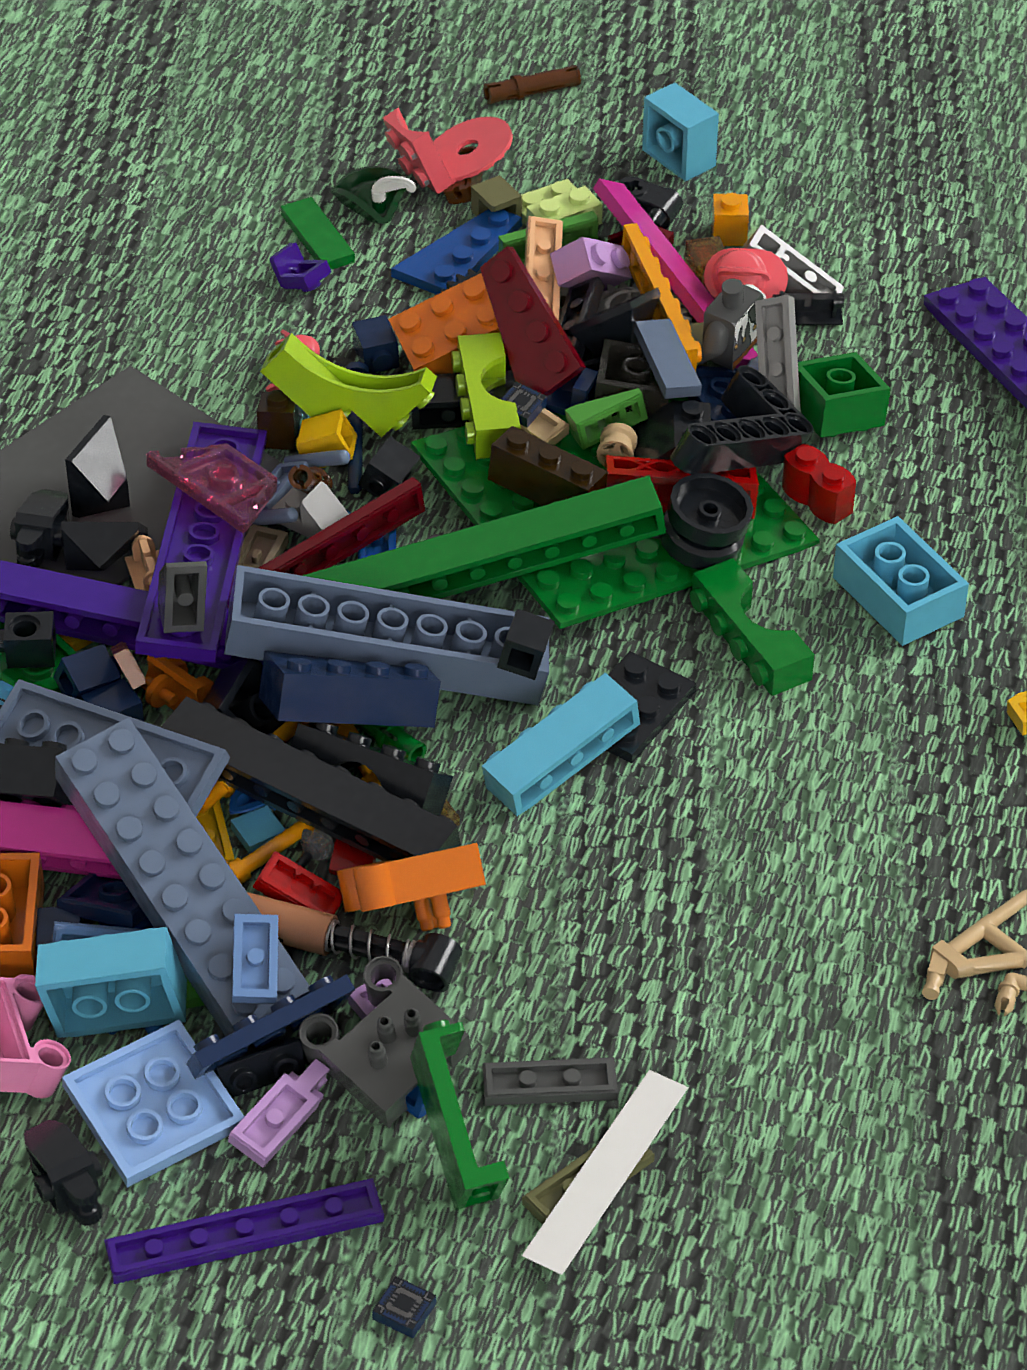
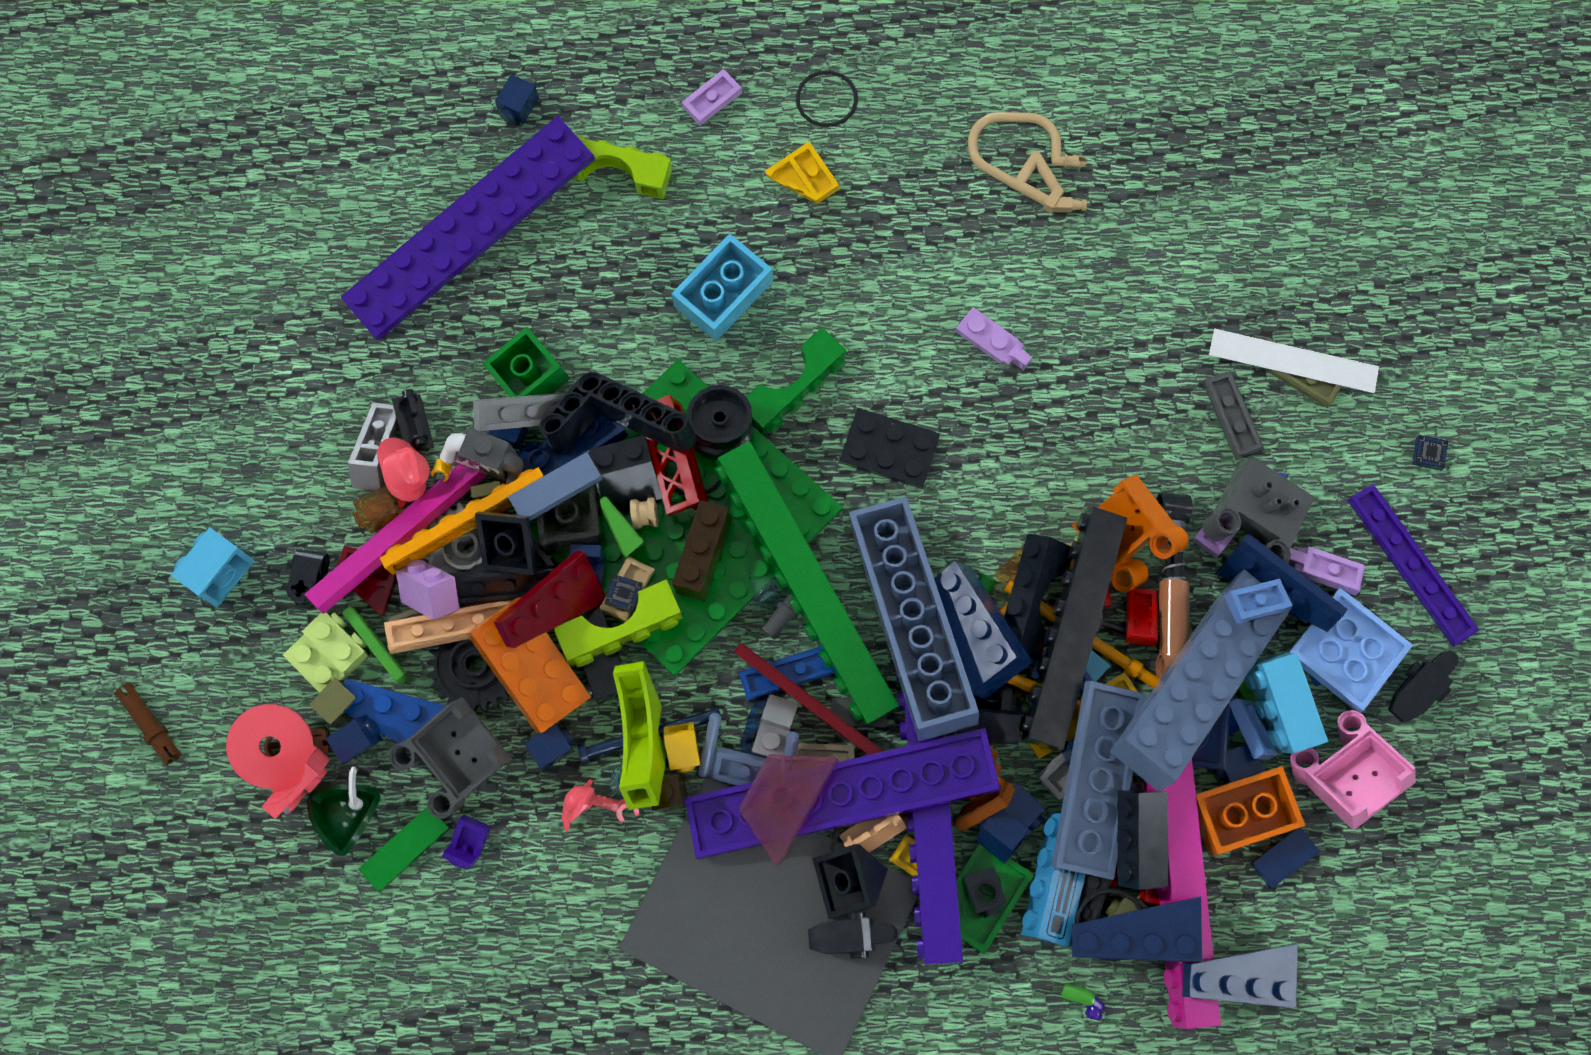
camera: 105 degrees left, 30 degrees up
(97, 472) = (788, 904): slope -> none
(182, 596) = (954, 763): dark grey slope -> none
(308, 478) = (742, 735): reddish brown pin -> none
(389, 468) = (704, 686): black brick -> none
(395, 261) = (456, 751): none -> dark grey piece
(449, 206) = (354, 738): none -> dark blue brick
(465, 1181) = (1297, 457): green panel -> none
(525, 644) = (901, 510): black brick -> none
(561, 744) = (959, 476): medium azure brick -> none
(730, 218) = (317, 503): light orange brick -> none
(750, 844) = (993, 339): none -> lavender hinge
(818, 483) = (633, 361): red brick -> none

